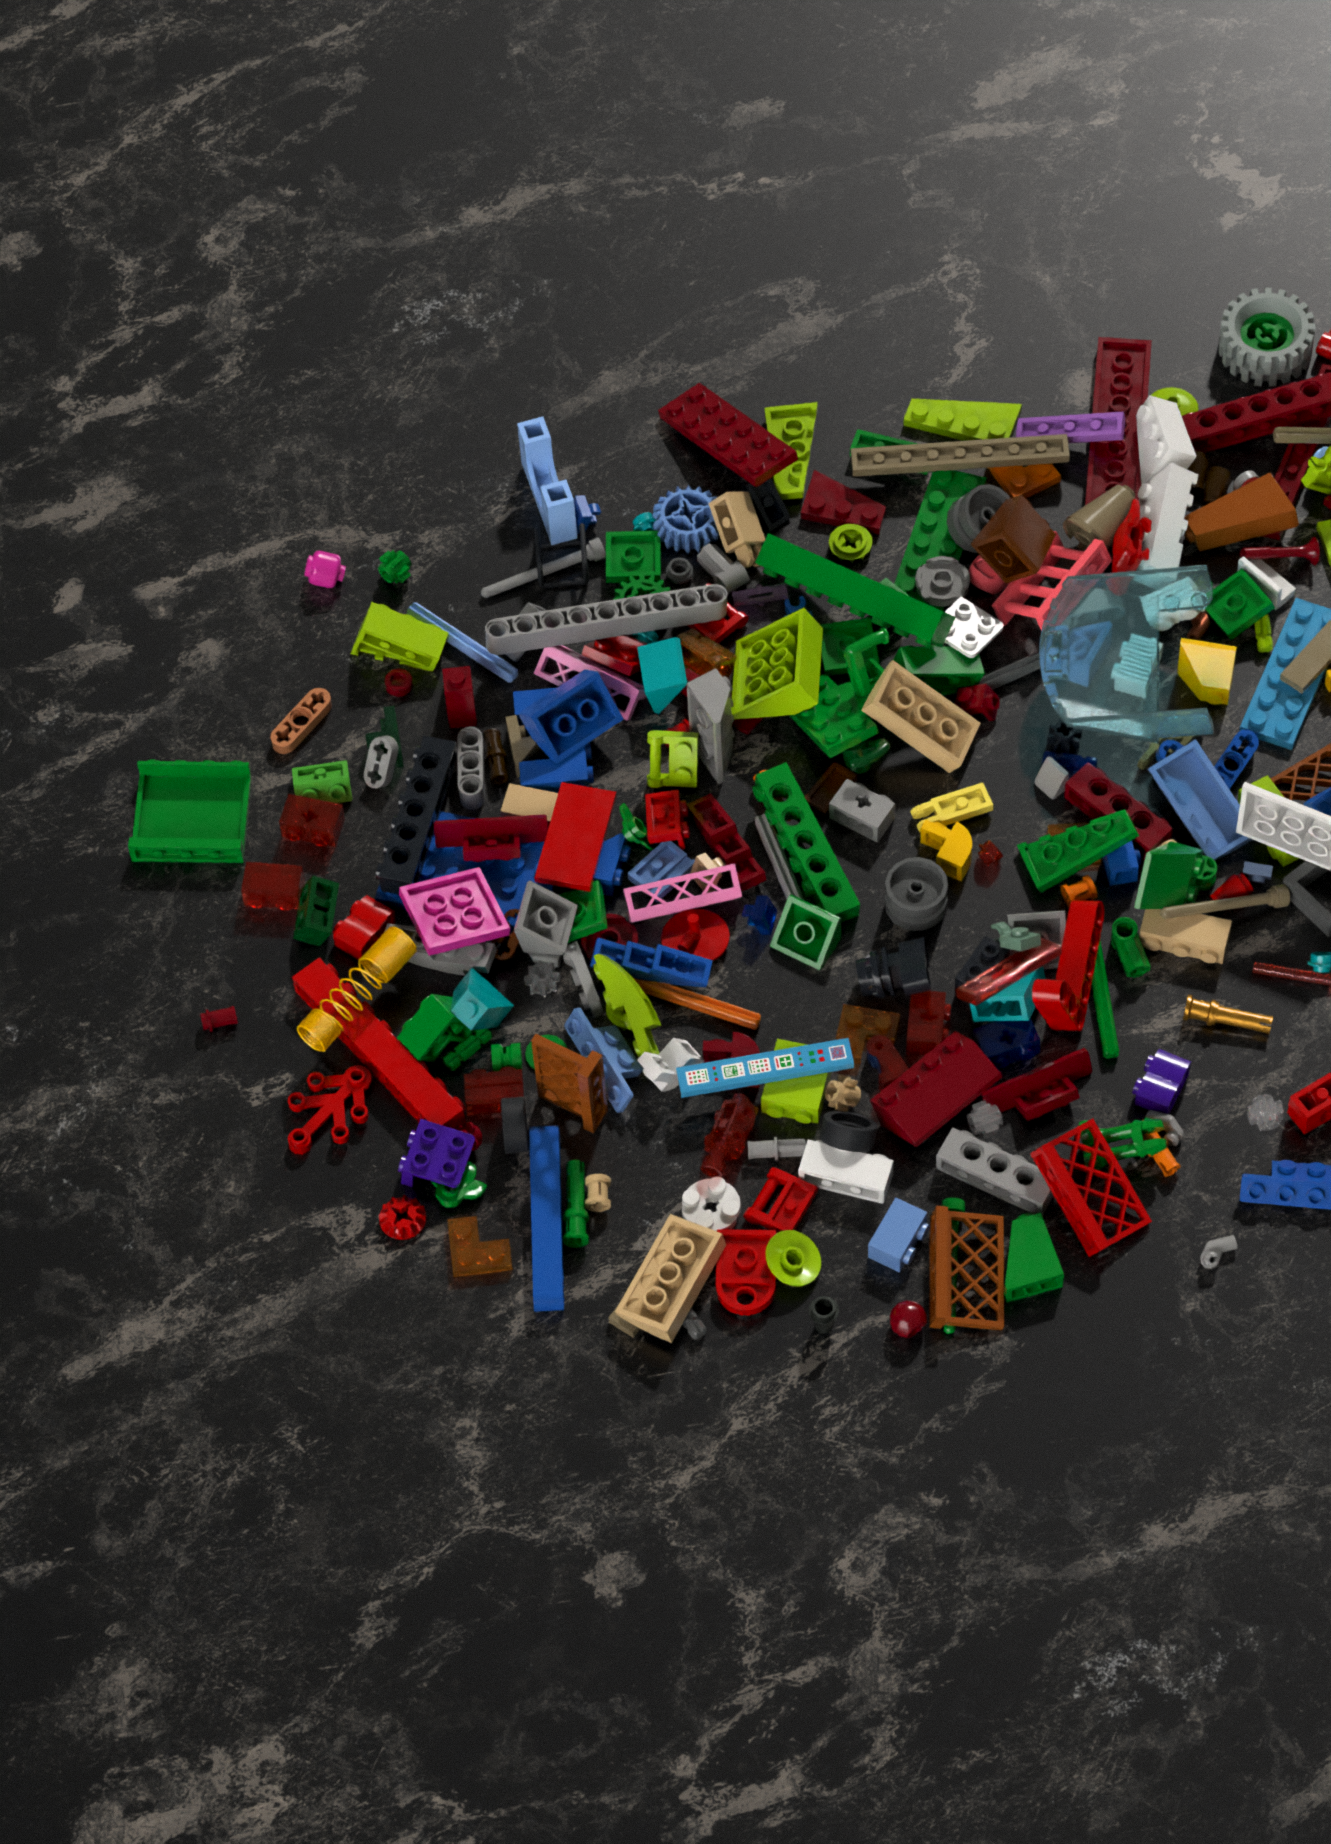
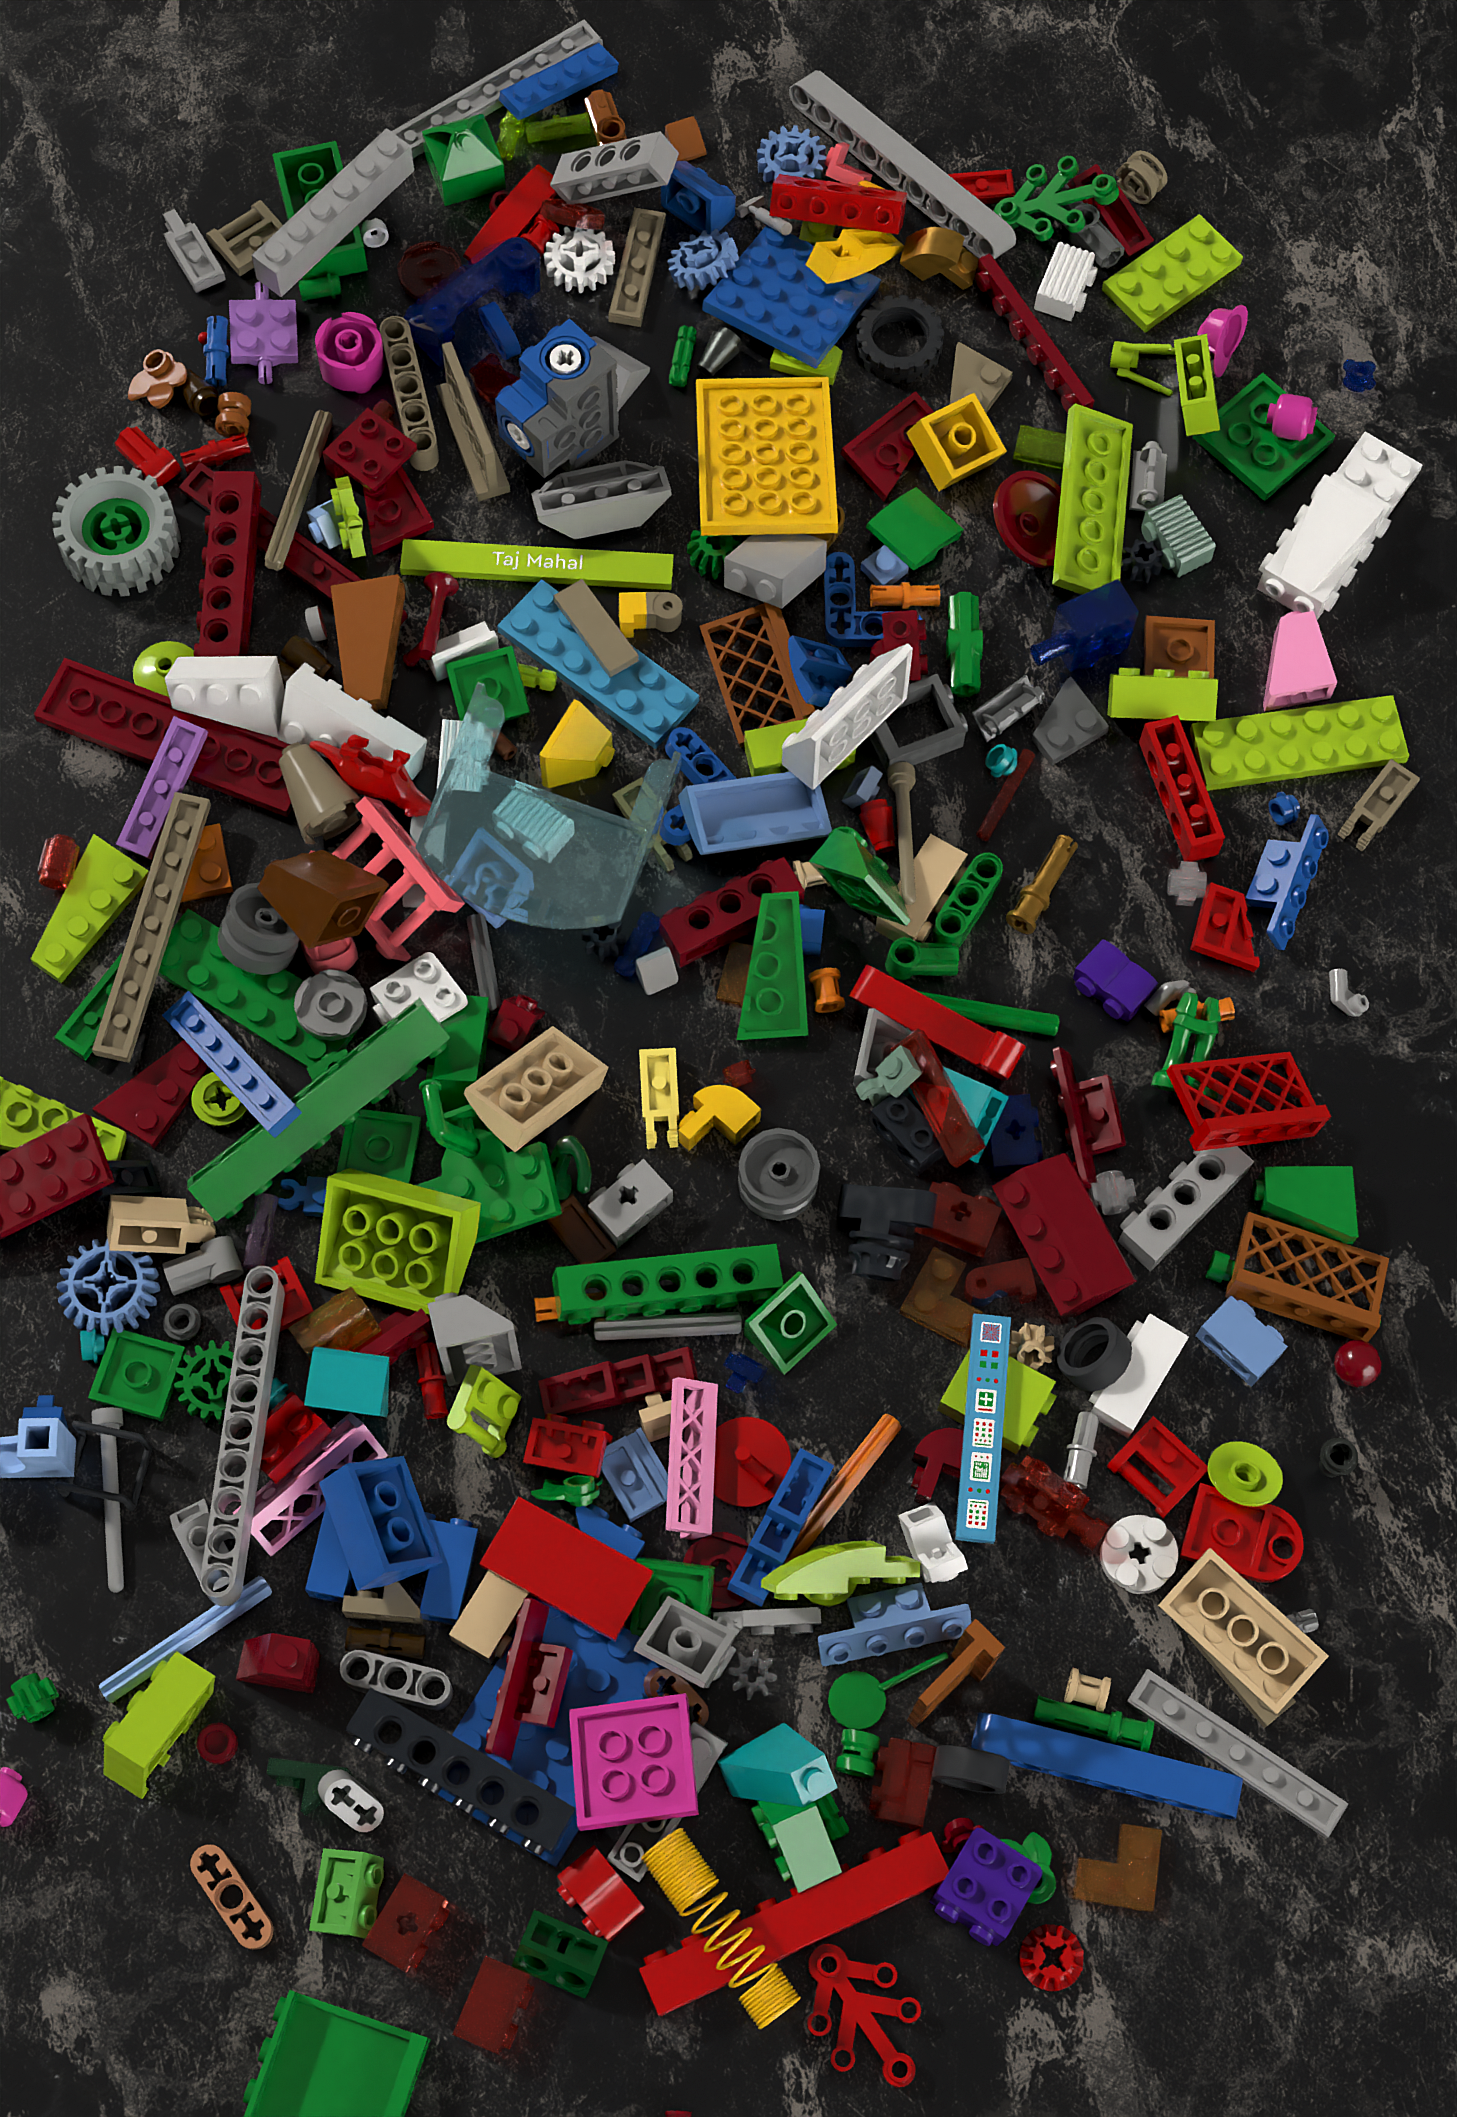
camera: 80 degrees left, 10 degrees up
(583, 1305) = (1237, 1753): none -> light grey tile
(868, 529) = (232, 1064): none -> plate
(991, 389) = (58, 862): none -> clear red brick
(1203, 961) = (973, 887): none -> green beam
(1239, 1151) = (1224, 928): none -> red wing

